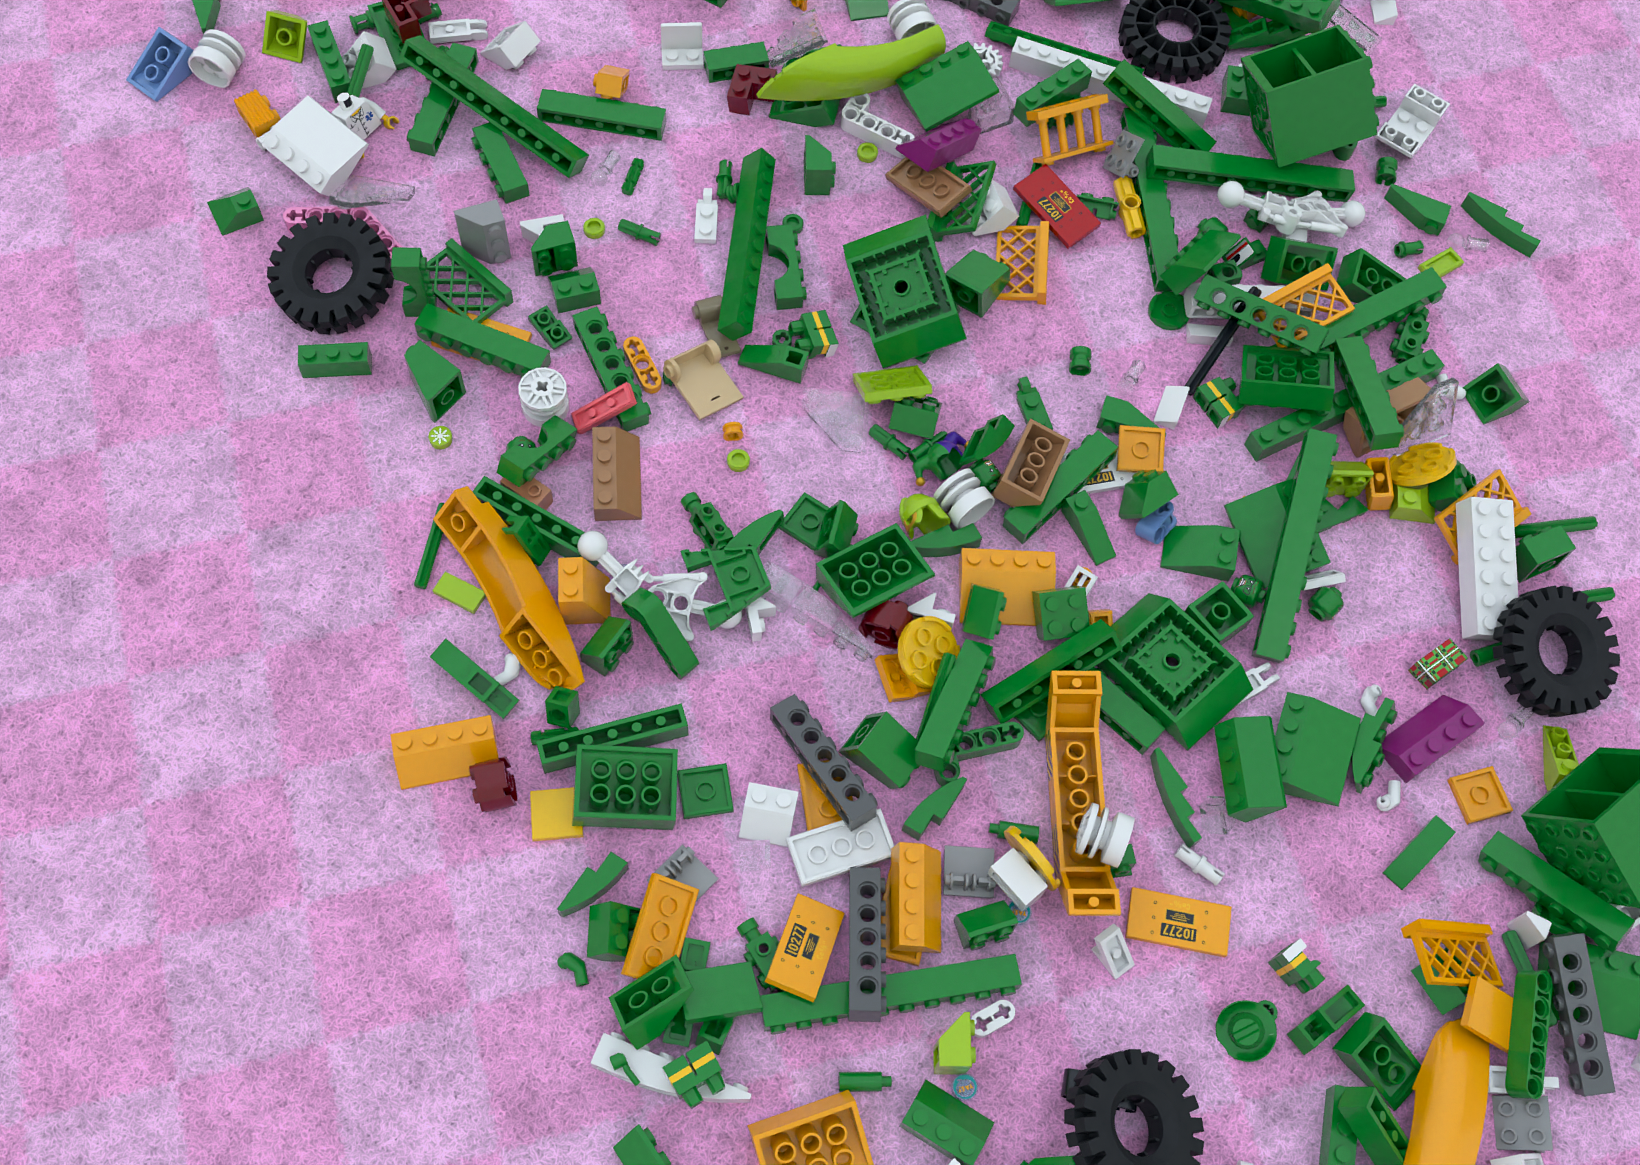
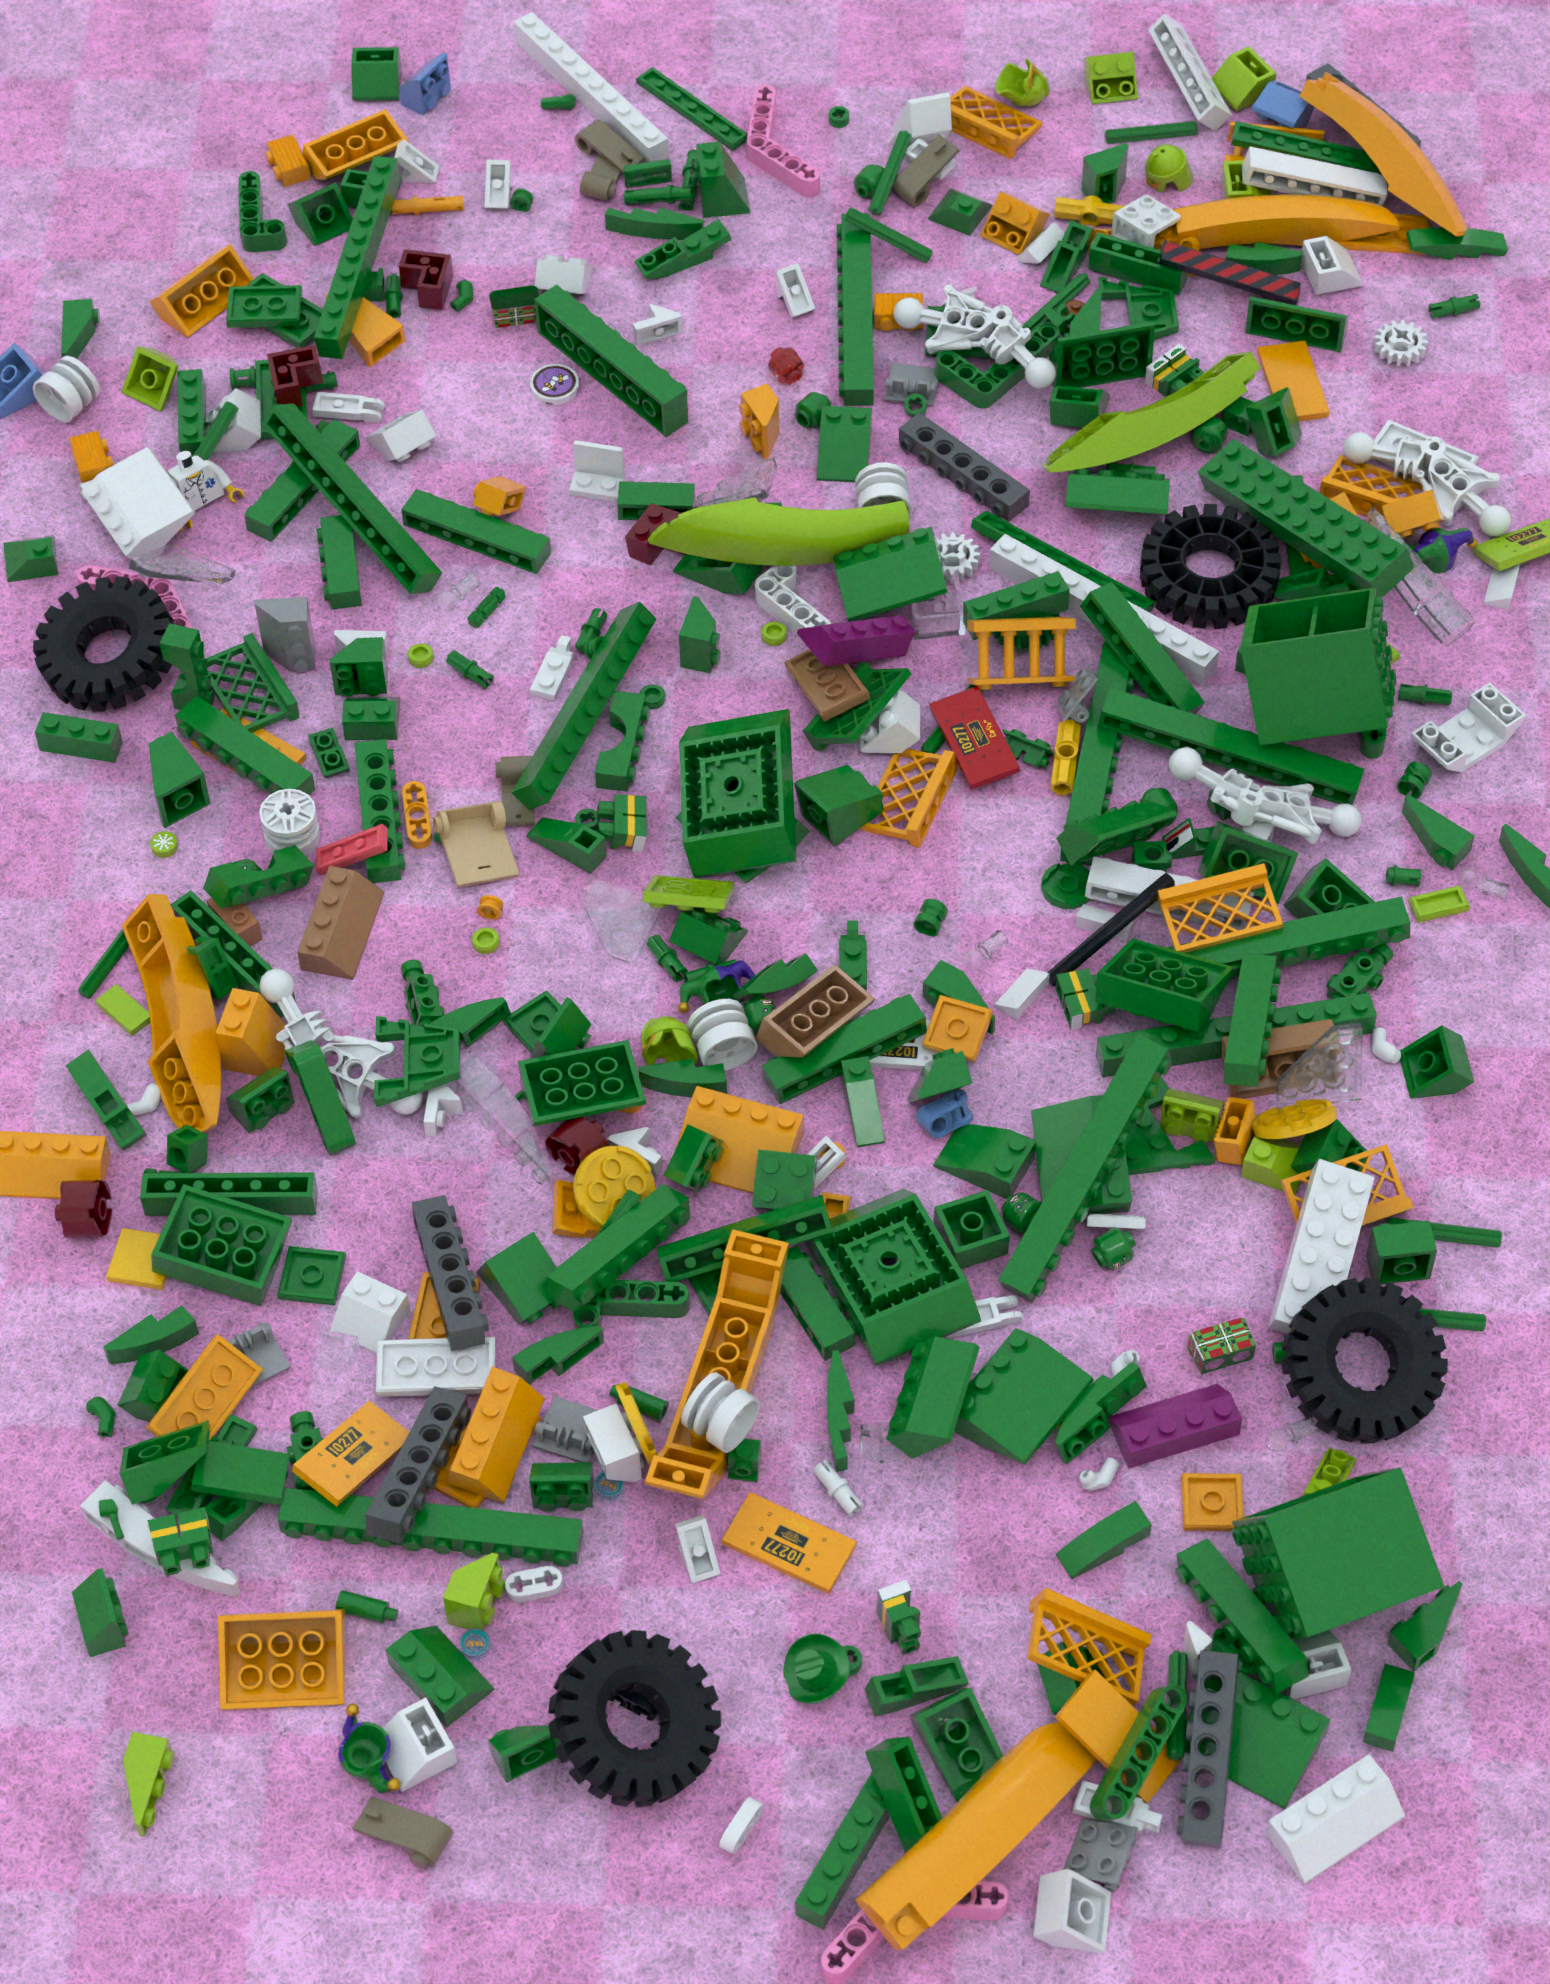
camera: 25 degrees right, 10 degrees down
(1212, 286) = (1208, 940): green brick -> none

